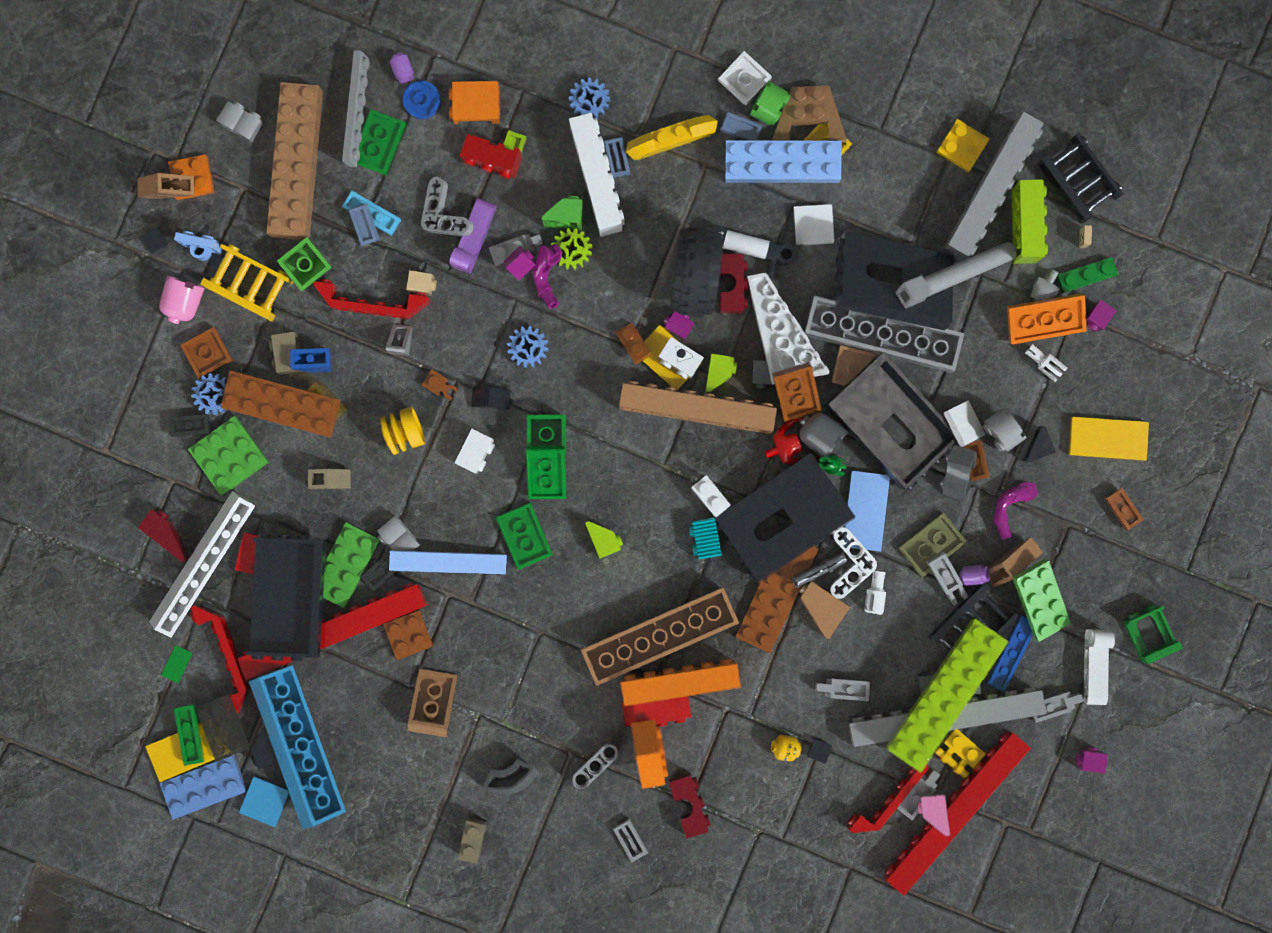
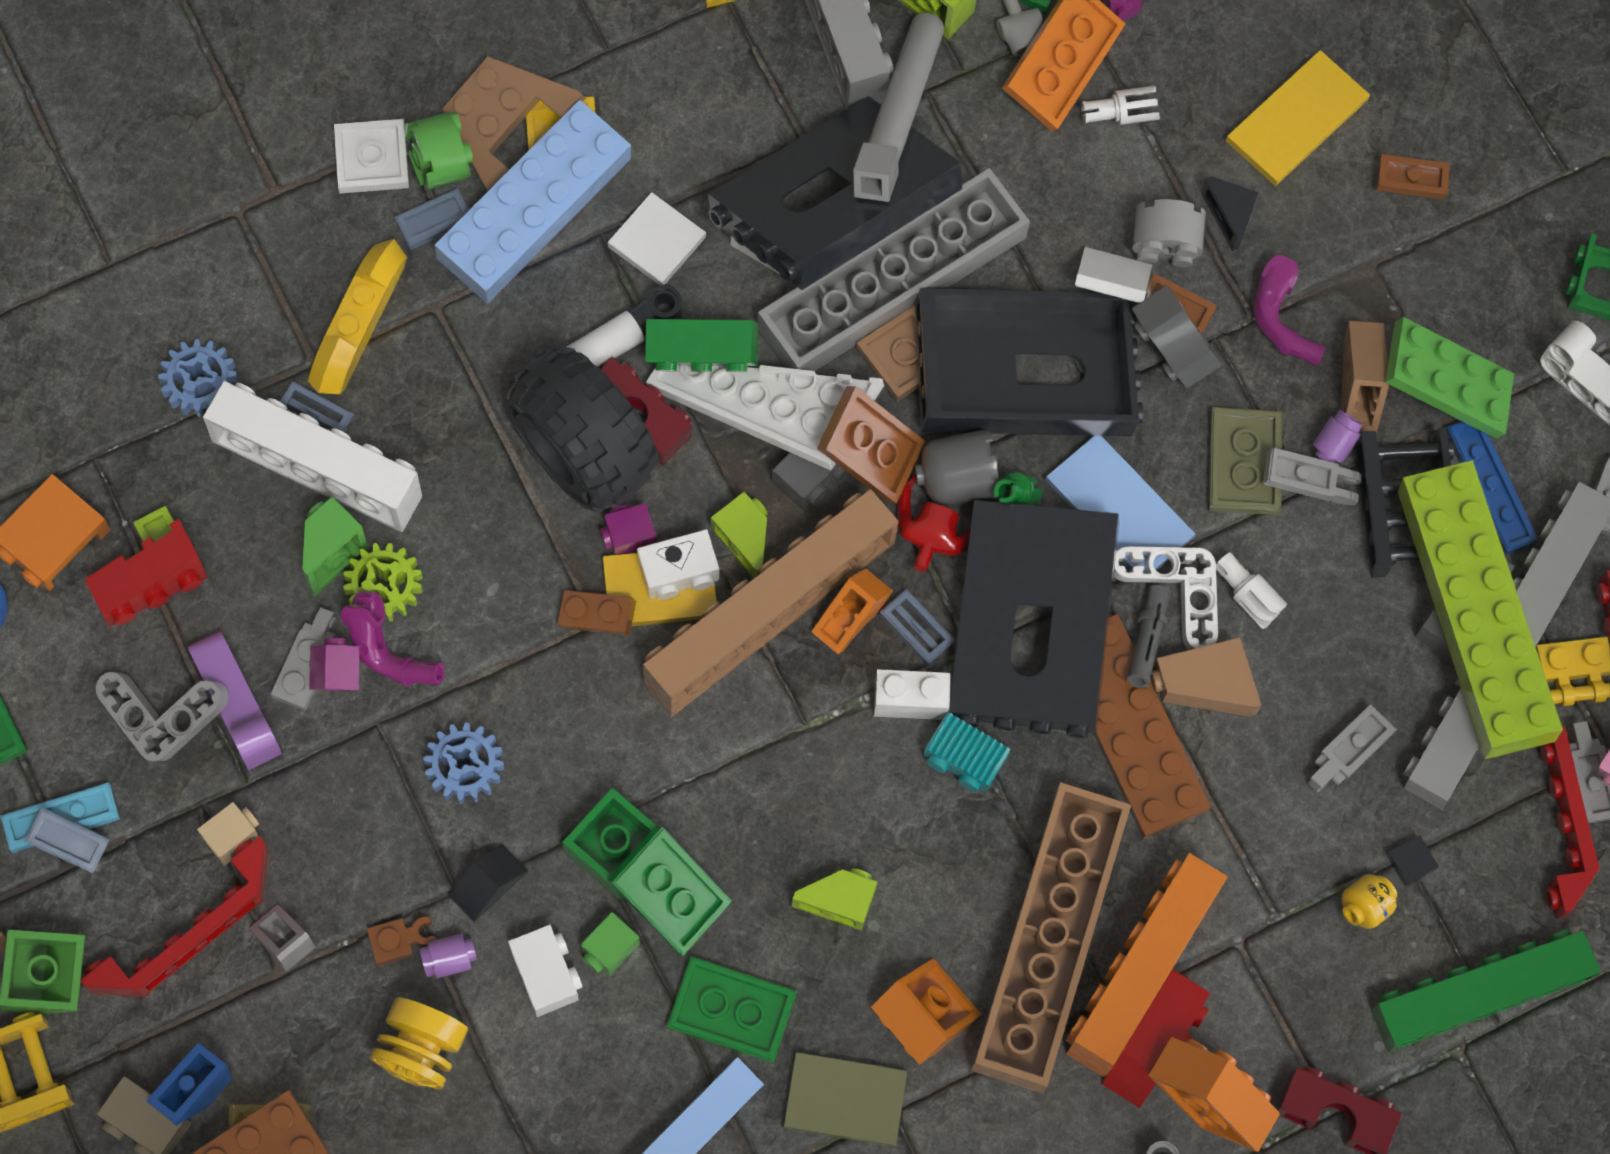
camera: 55 degrees left, 15 degrees down
(448, 410) = (448, 956): none -> medium lavender brick
(506, 467) = (609, 945): none -> bright green brick
(527, 610) = (845, 1099): none -> olive tile
(588, 612) = (925, 1010): none -> orange slope
(724, 442) = (851, 610): none -> orange arch
(744, 457) = (937, 650): none -> sand blue tile
(780, 285) = (701, 344): none -> green brick
(790, 824) = (1485, 990): none -> green brick

